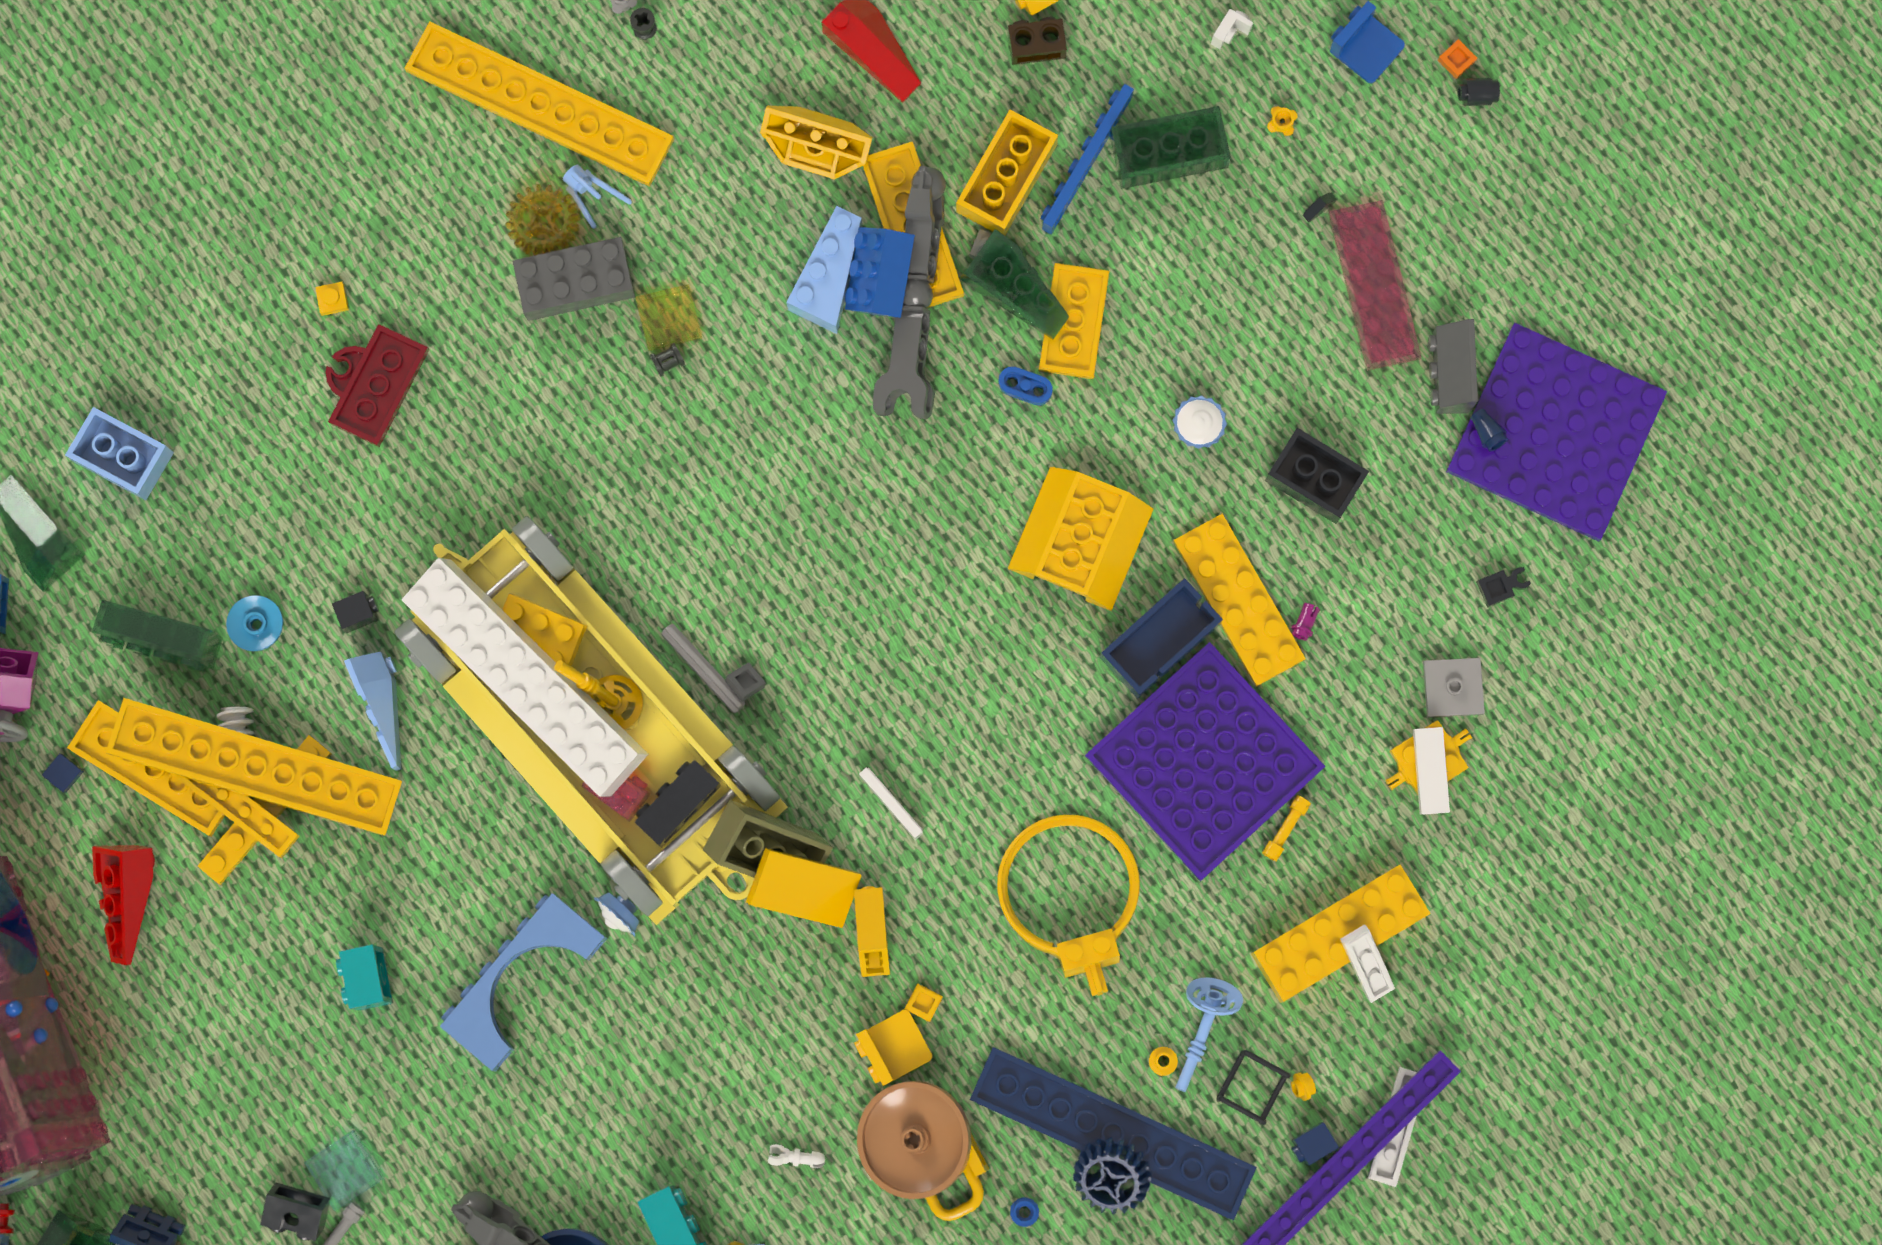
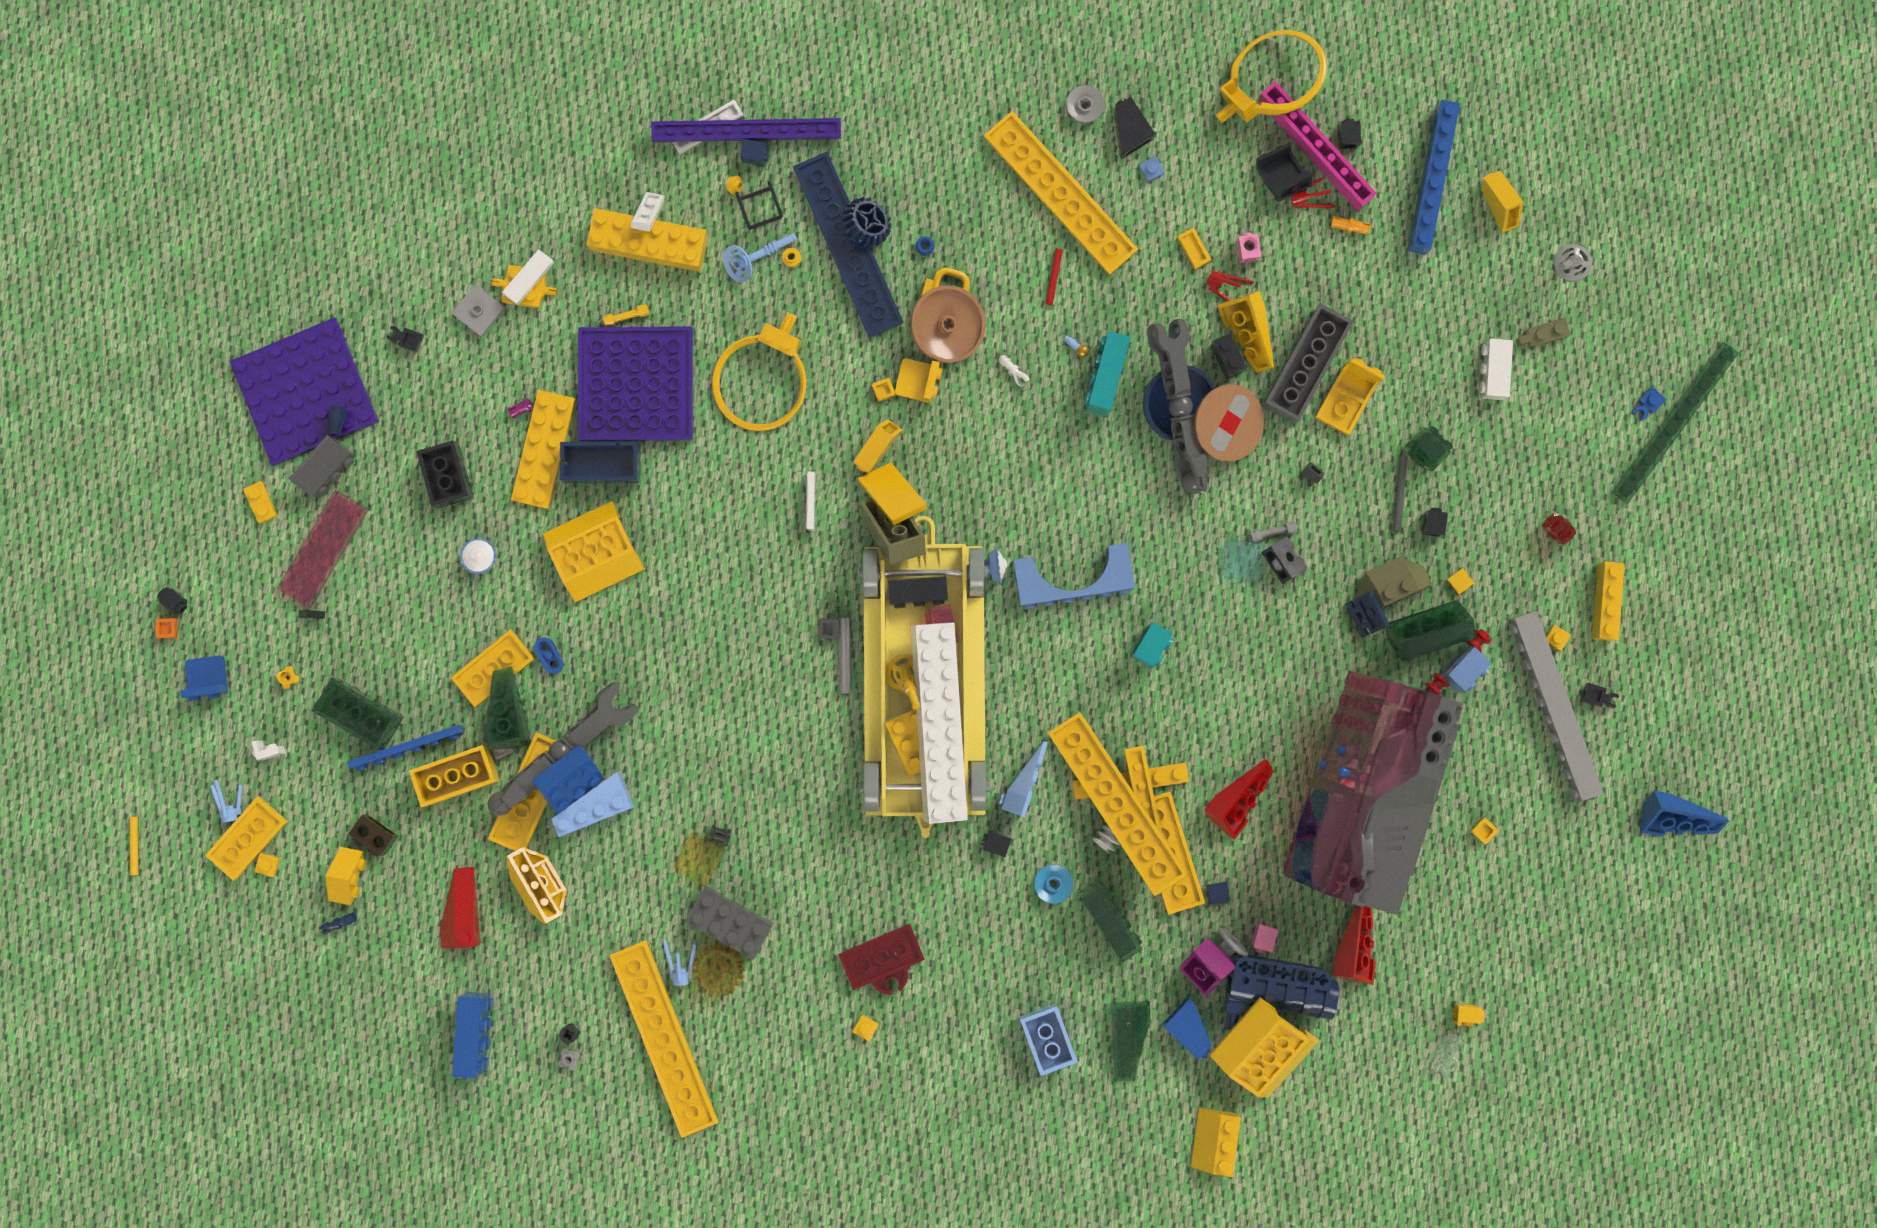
camera: 140 degrees left, 5 degrees up
(1488, 274) = (260, 502): none -> yellow plate

